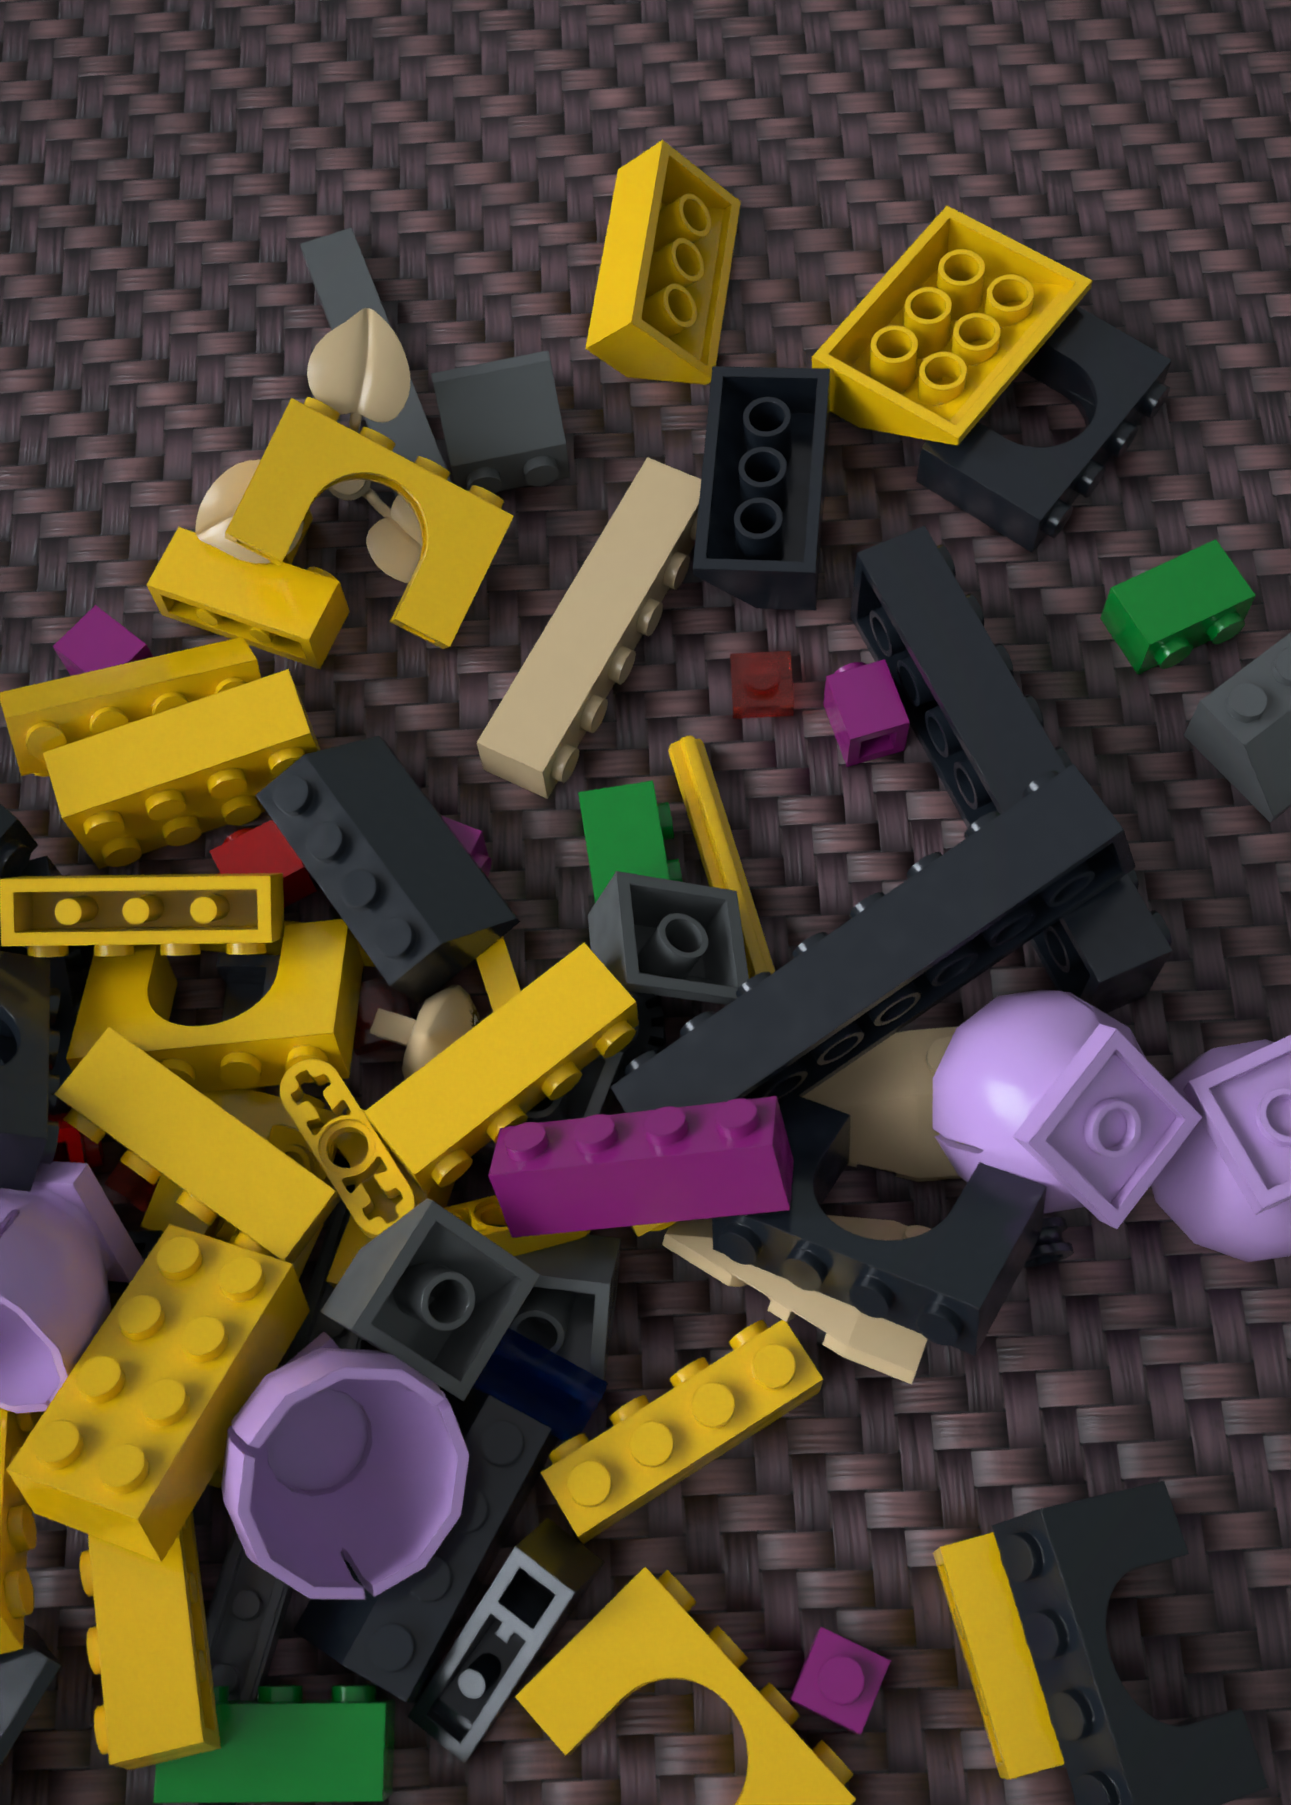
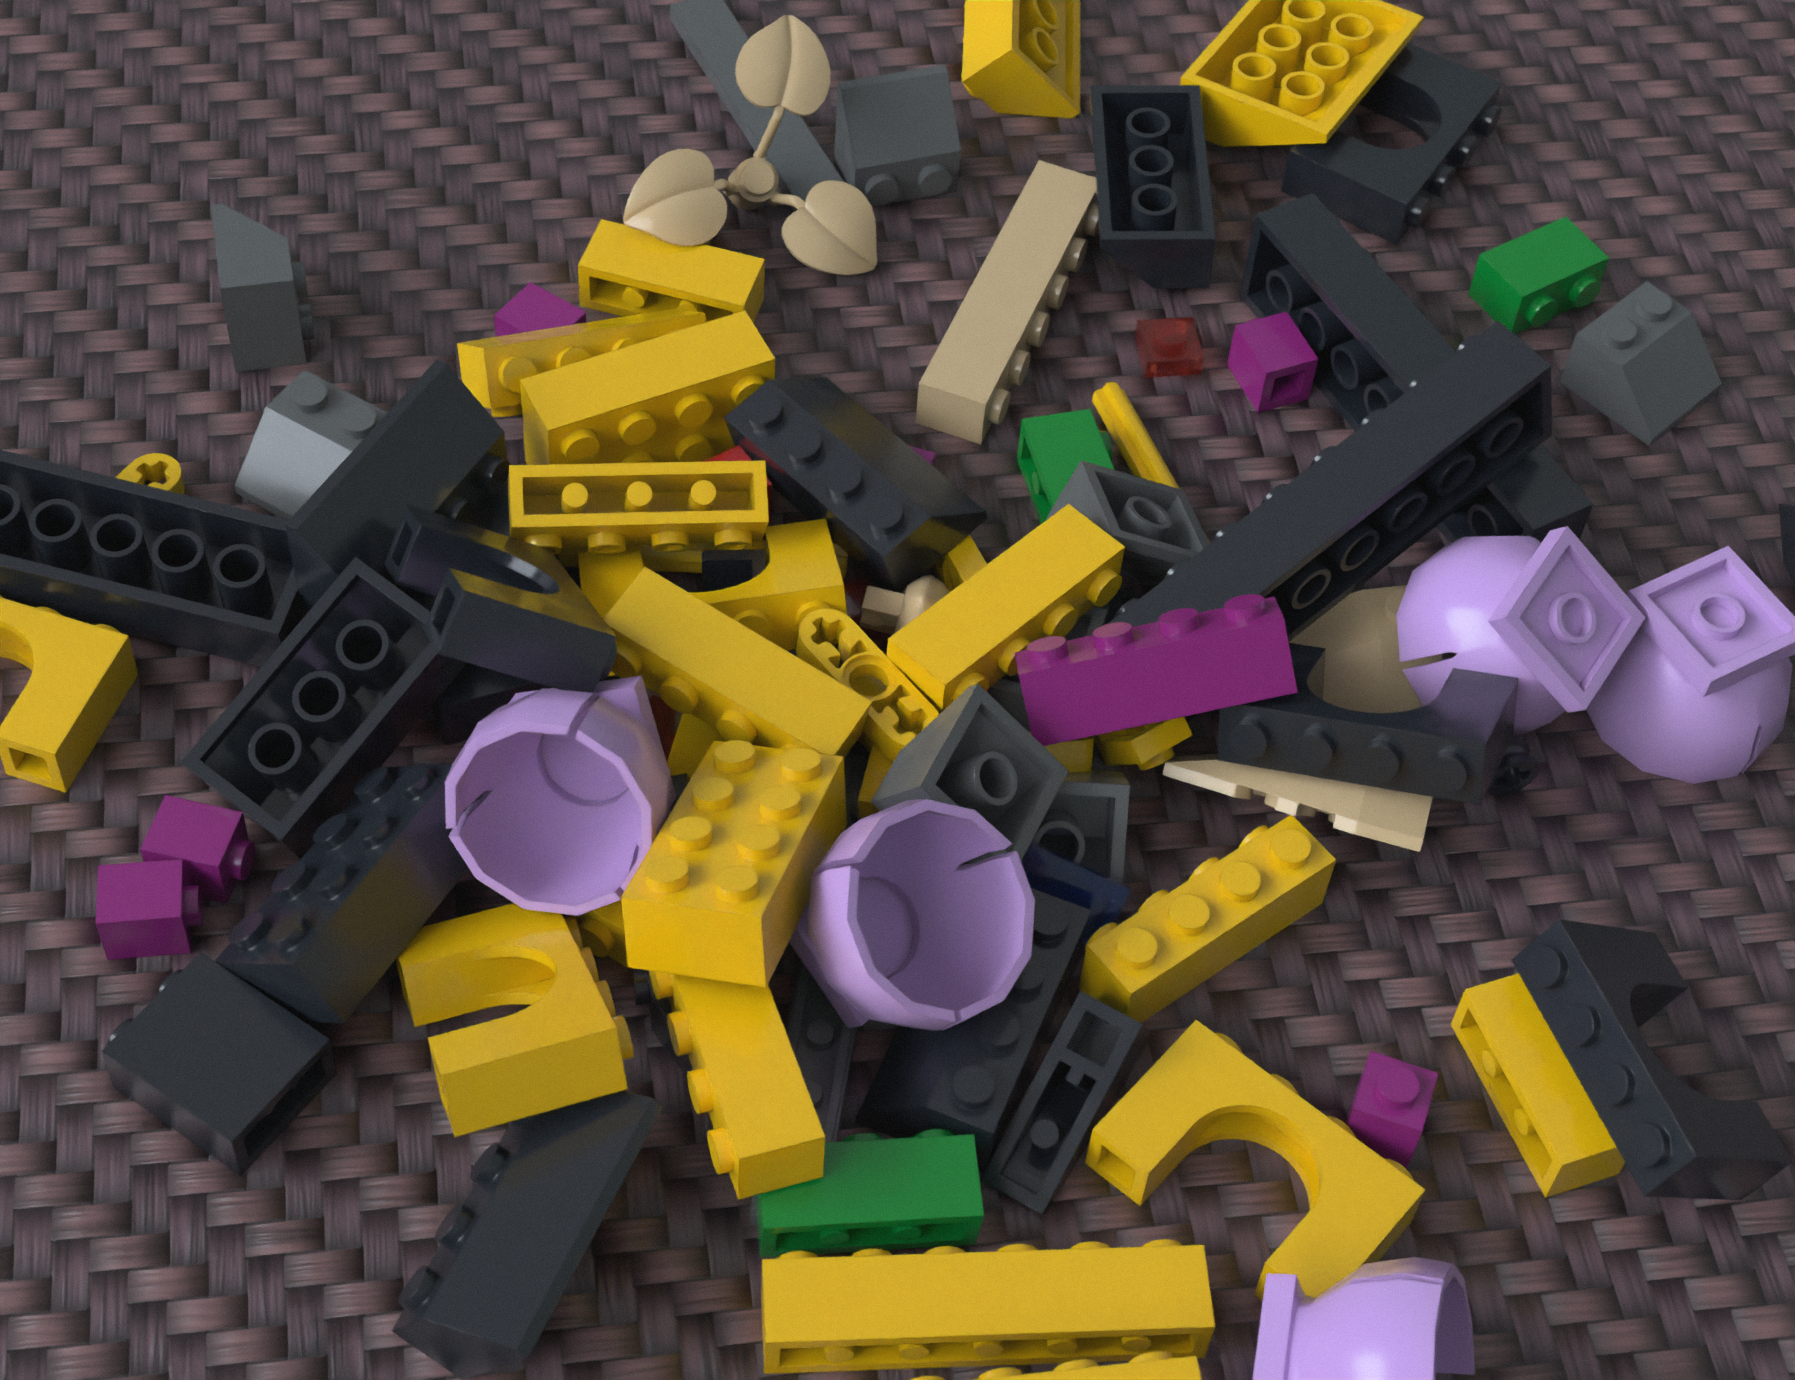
camera: 15 degrees left, 15 degrees down
(317, 452) = (871, 207): yellow arch -> none

